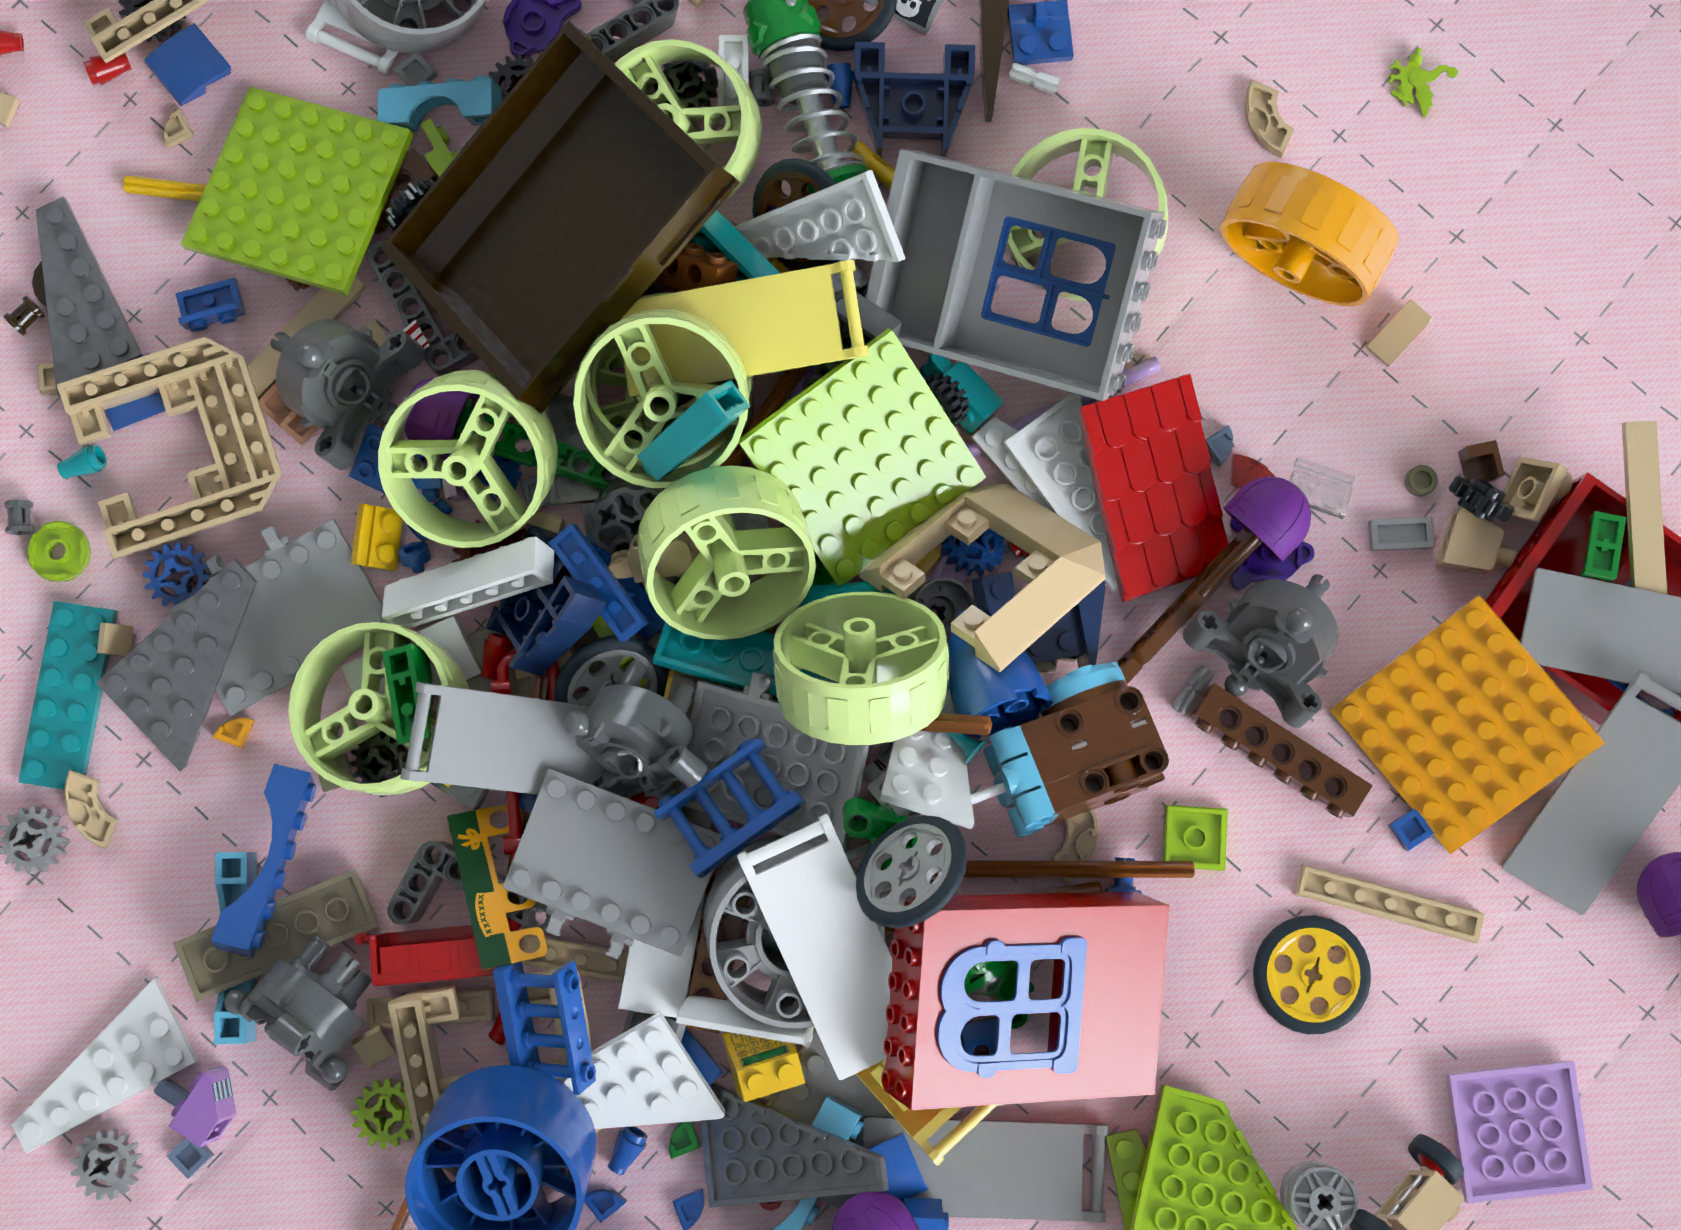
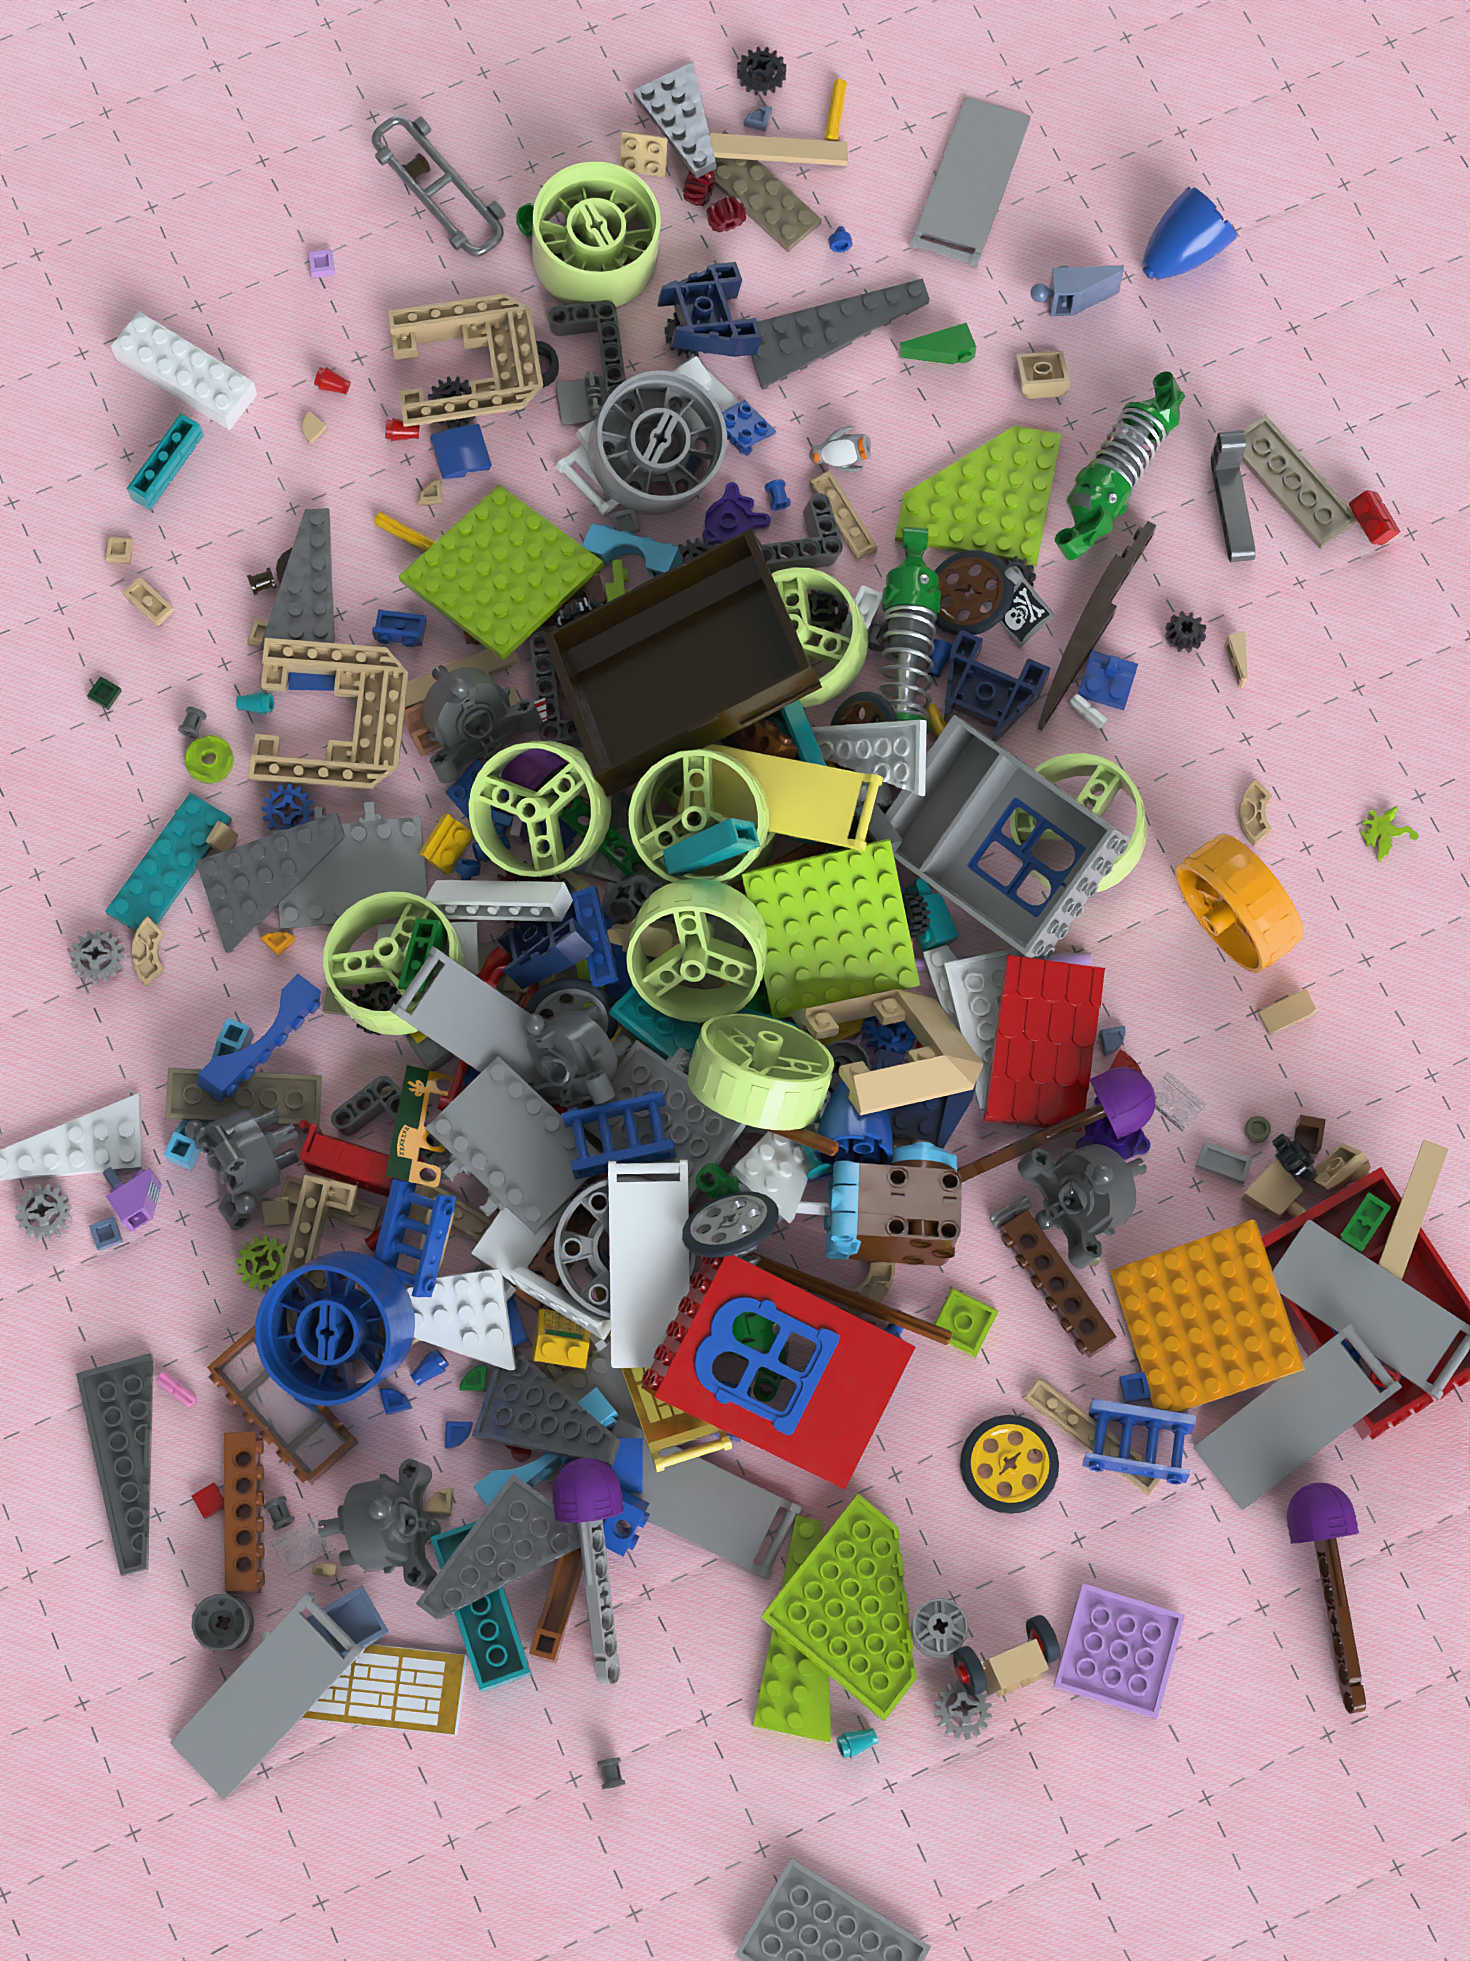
camera: 25 degrees right, 10 degrees down
(1451, 860) = (1154, 1420): none -> blue fence

